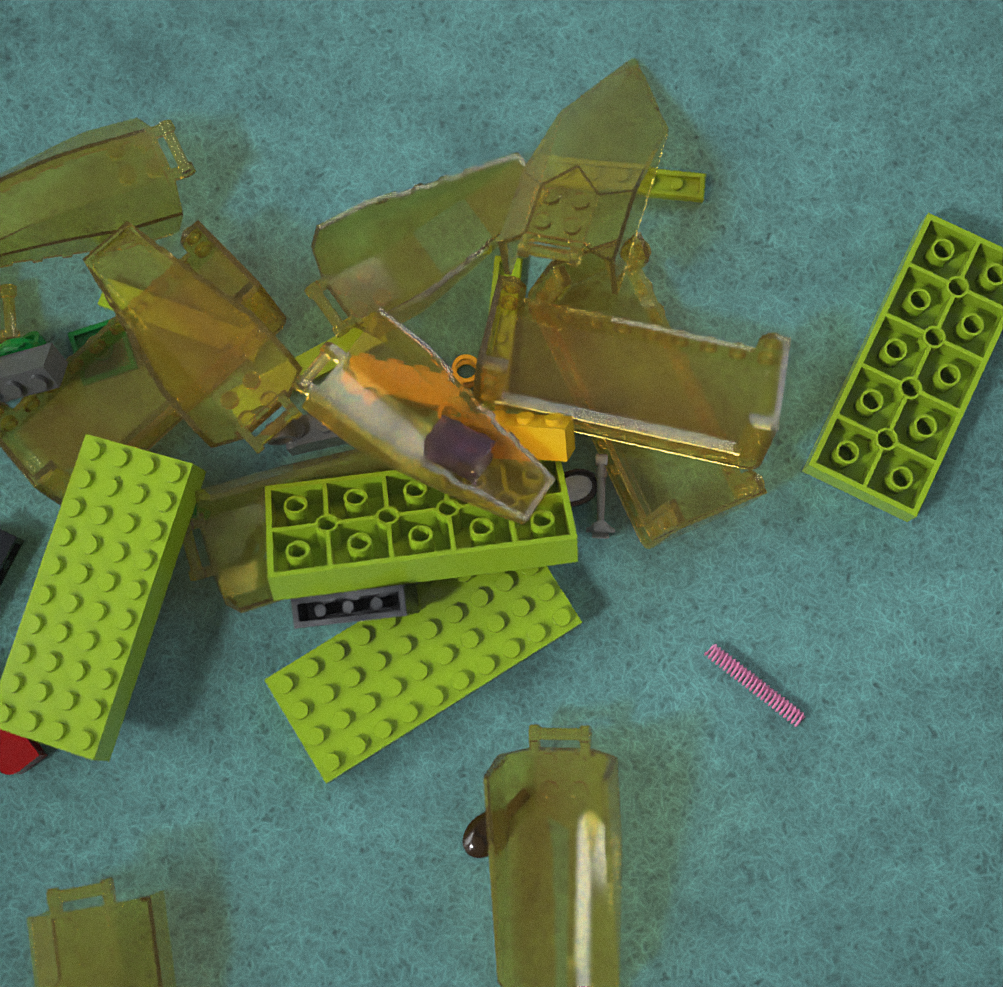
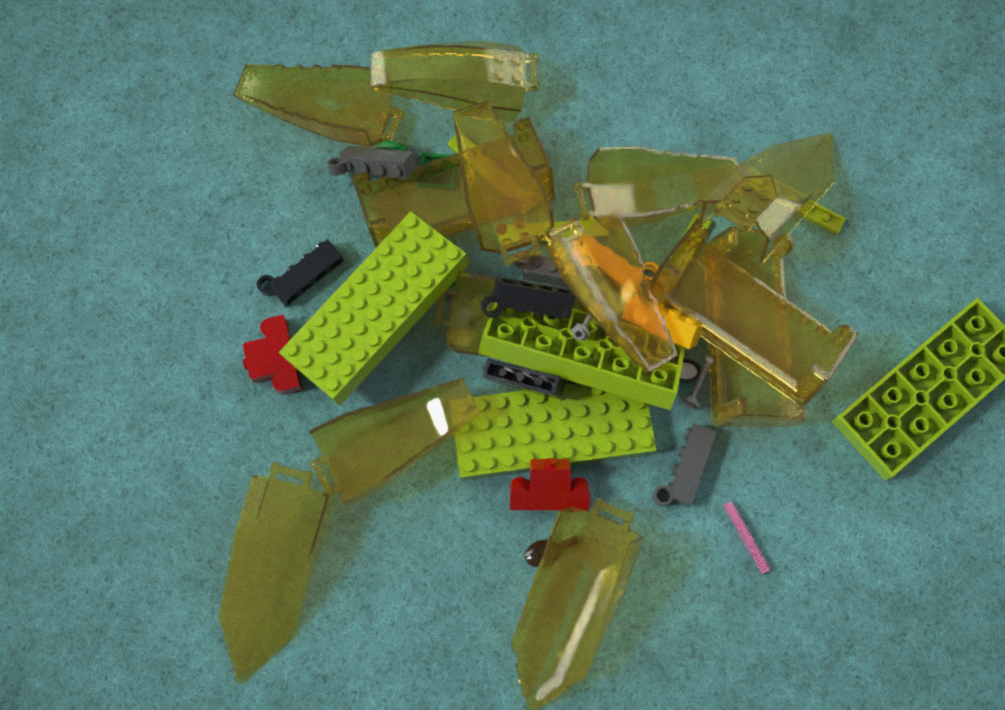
camera: 25 degrees right, 5 degrees down
(197, 780) = (385, 440): none -> clear yellow windscreen
(310, 489) = (529, 296): none -> black hinge
(406, 505) = (581, 331): none -> light grey piece
(457, 741) = (549, 487): none -> red brick
(458, 448) = (627, 312): brick -> none
(638, 622) = (690, 467): none -> dark grey hinge

